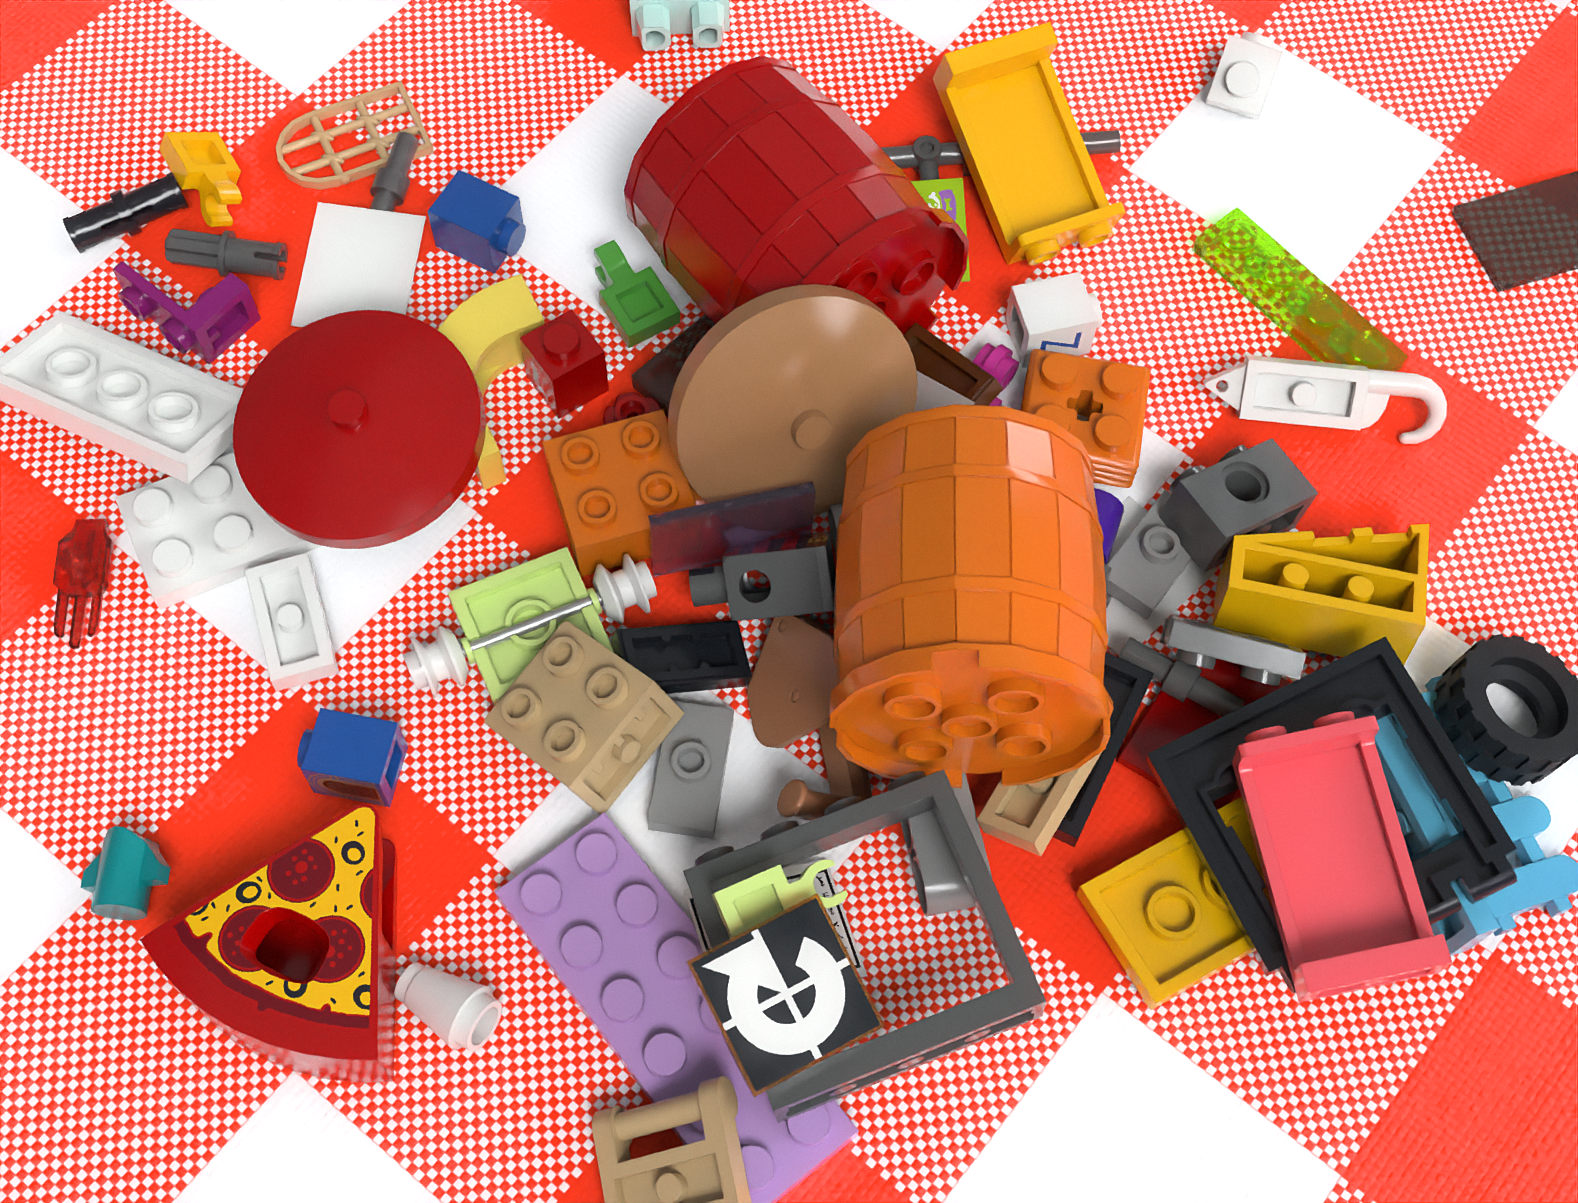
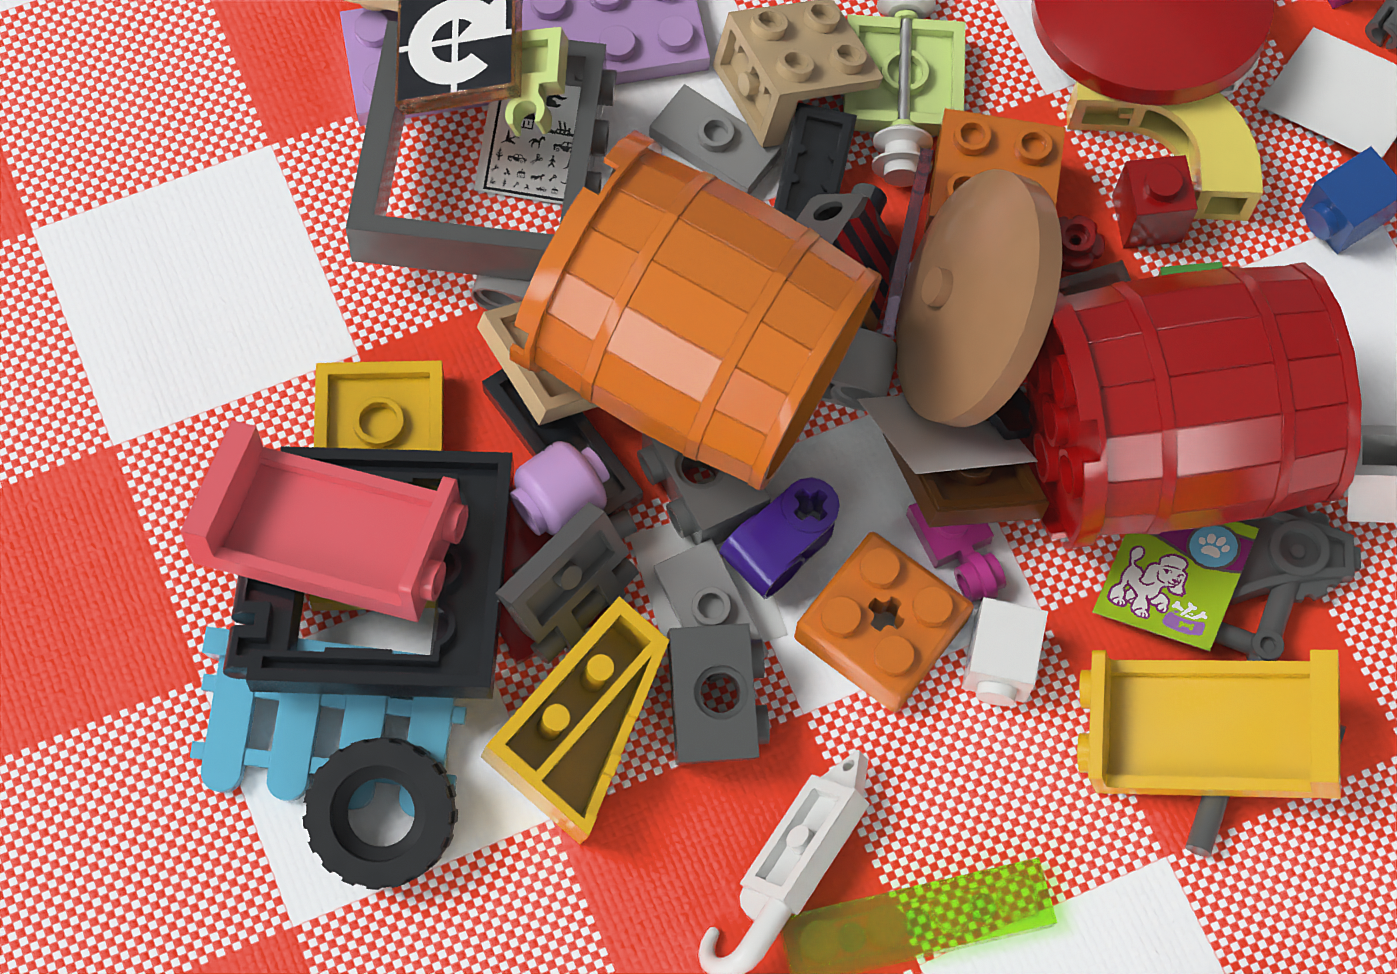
camera: 115 degrees right, 5 degrees up
(1154, 696) = (558, 486): none -> lavender head

